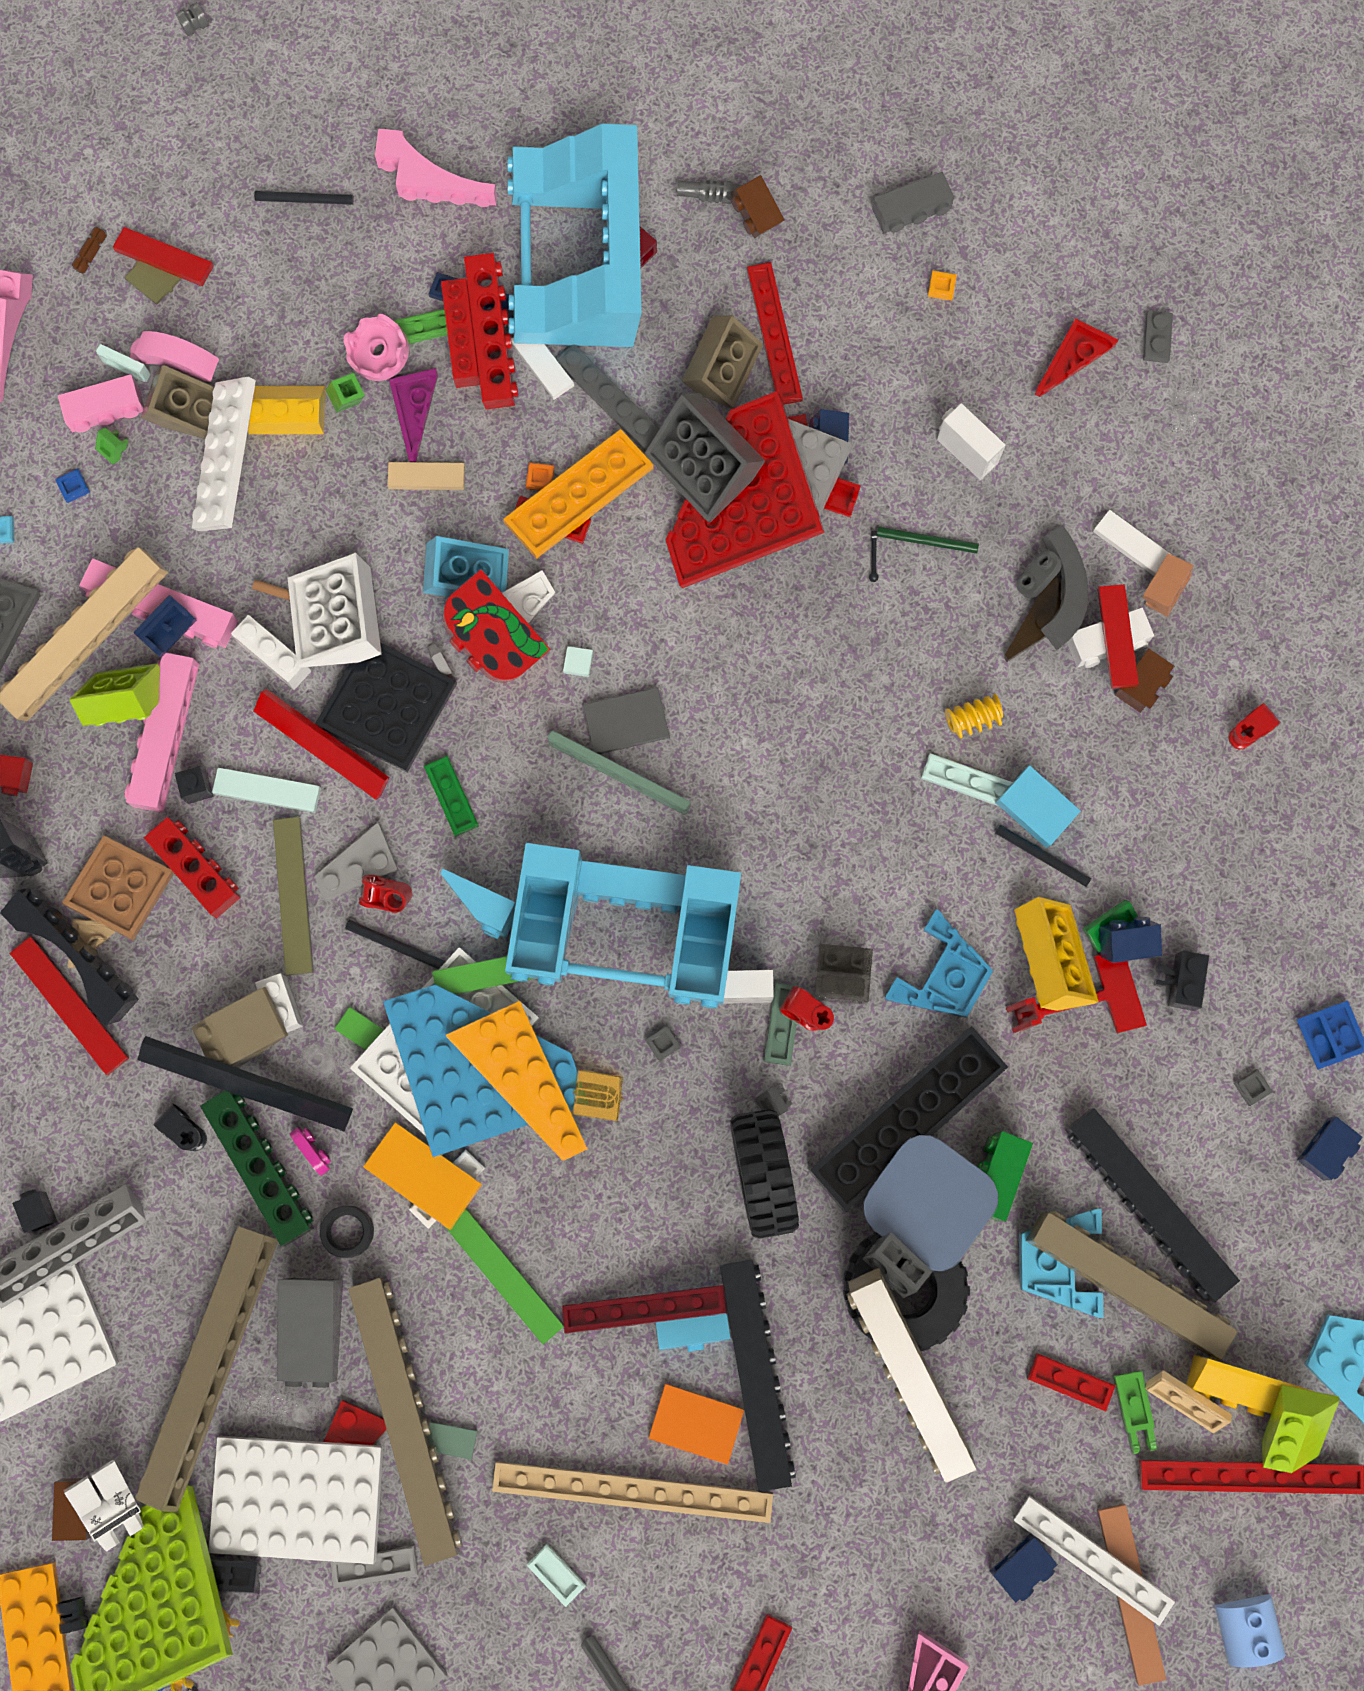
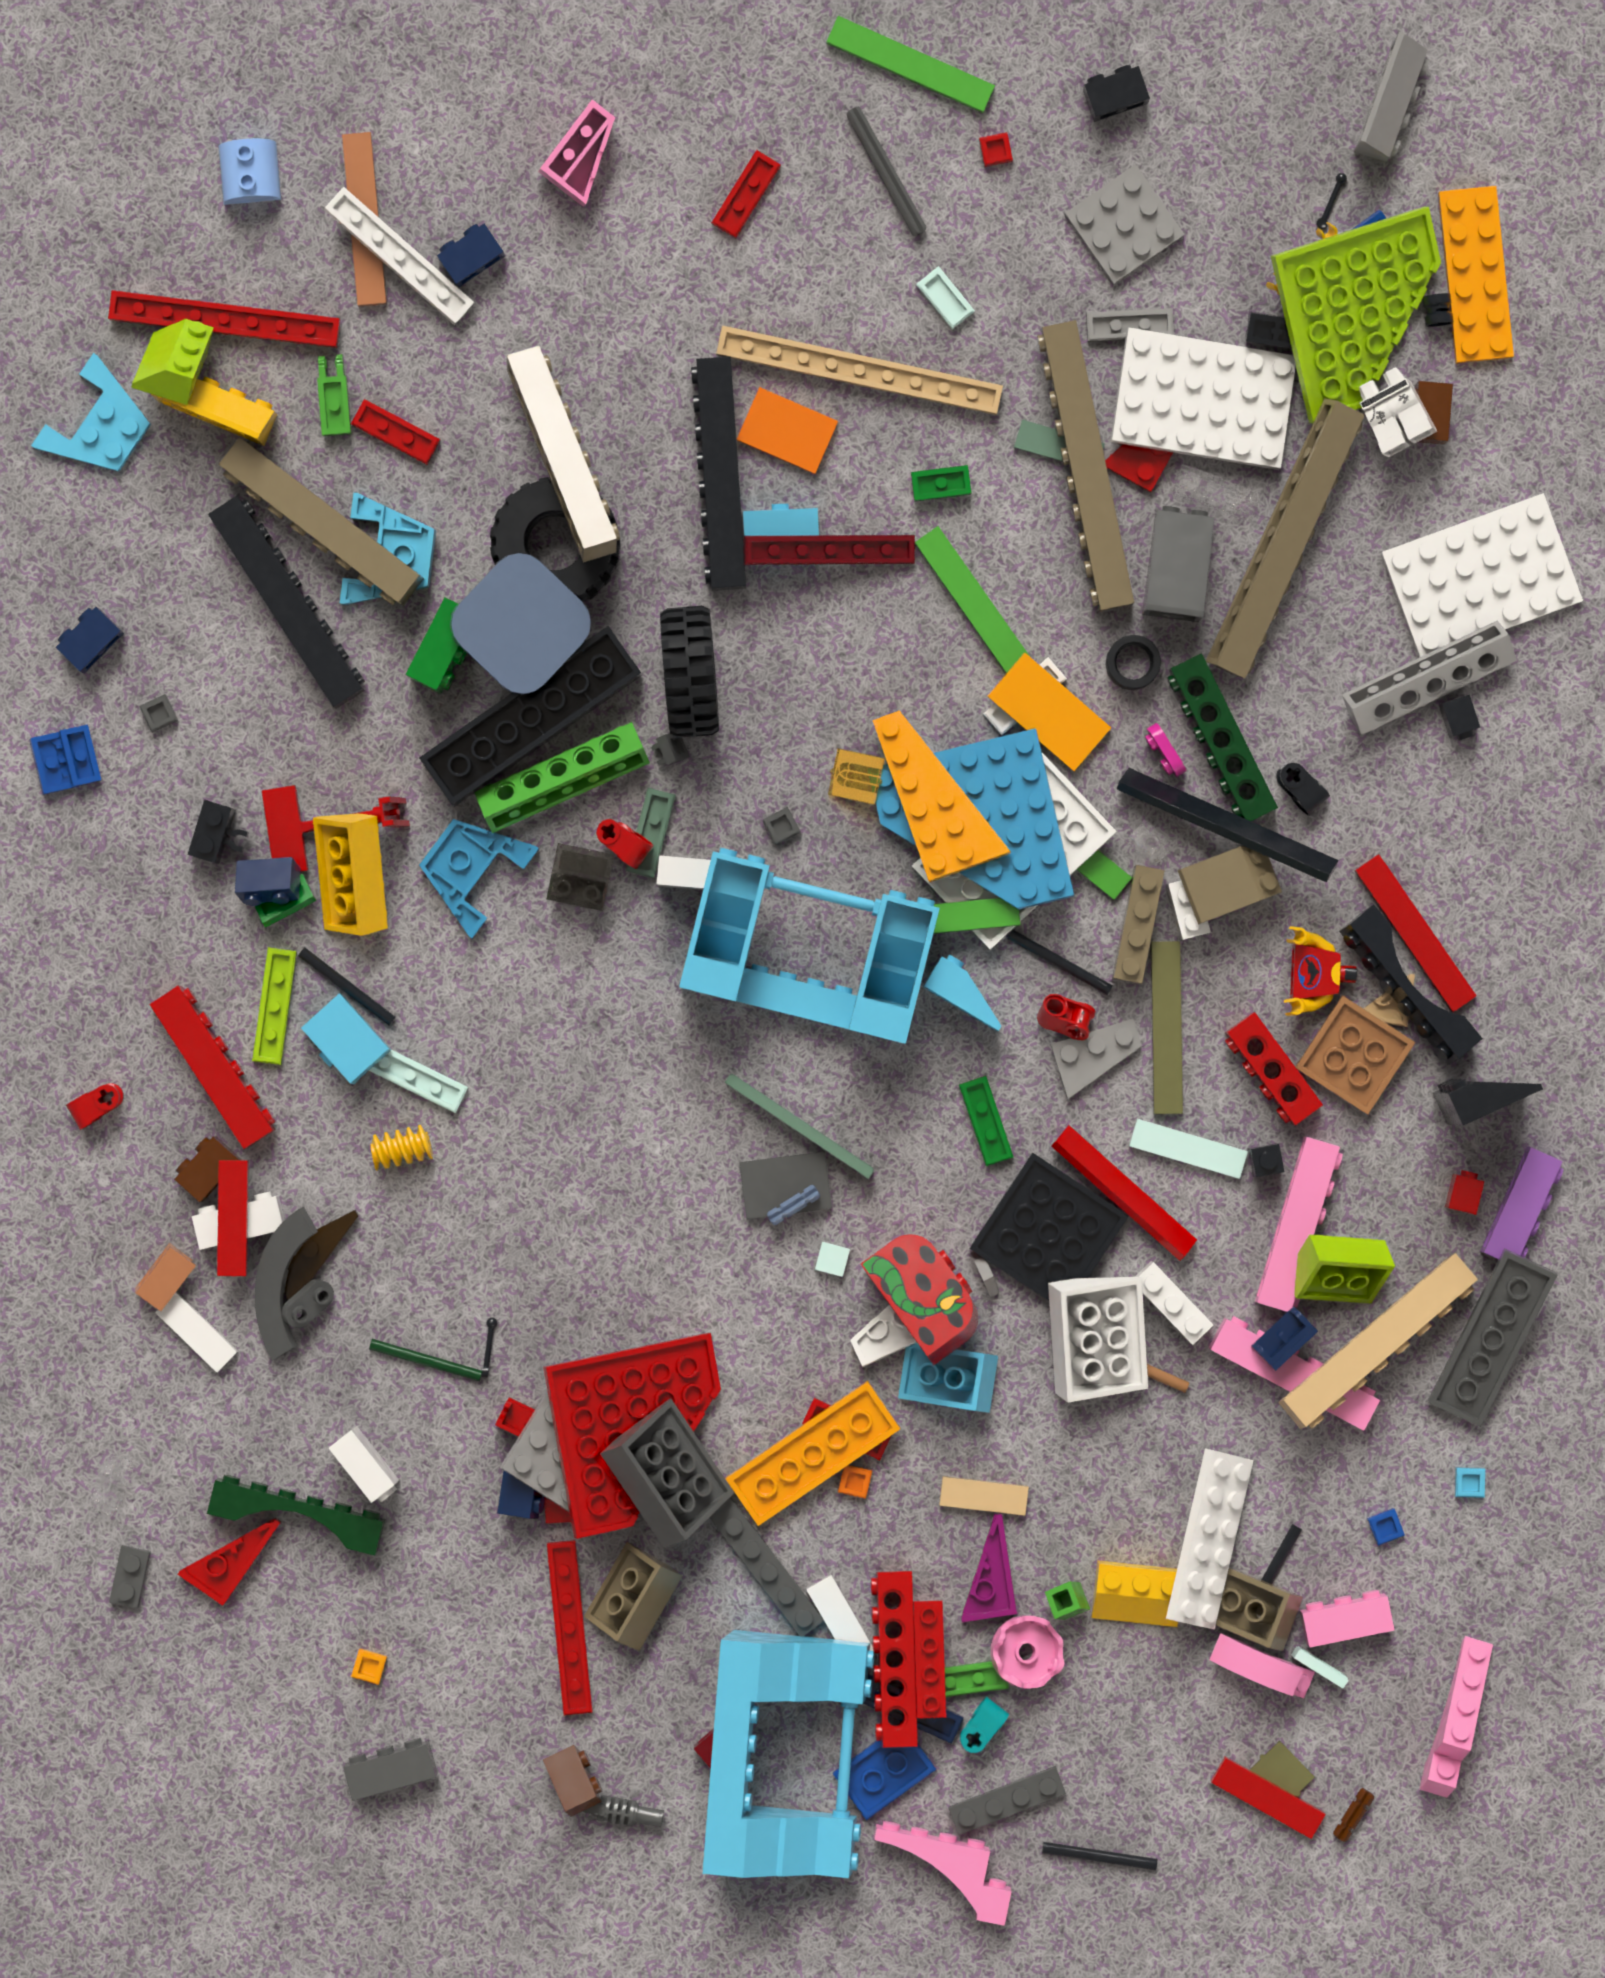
camera: 175 degrees left, 10 degrees up
(109, 445) = (1340, 1568): bright green tile -> none
(158, 957) = (1315, 972): none -> torso
(163, 454) = (1281, 1554): none -> black bar
(324, 985) = (1138, 924): none -> dark tan brick
(386, 233) = (1007, 1800): none -> dark grey plate
(409, 290) = (986, 1721): none -> teal piece
(496, 234) = (884, 1774): none -> blue tile
(543, 1387) = (941, 483): none -> green plate
(617, 702) = (793, 1205): none -> sand blue axle
(858, 1064) = (561, 777): none -> bright green brick
(897, 1264) = (563, 563): dark grey brick -> none
(1075, 405) = (354, 1529): none -> dark green arch
(1105, 832) = (274, 1006): none -> lime tile
(1154, 770) = (213, 1067): none -> red brick
(1188, 1401) = (279, 399): tan tile -> none

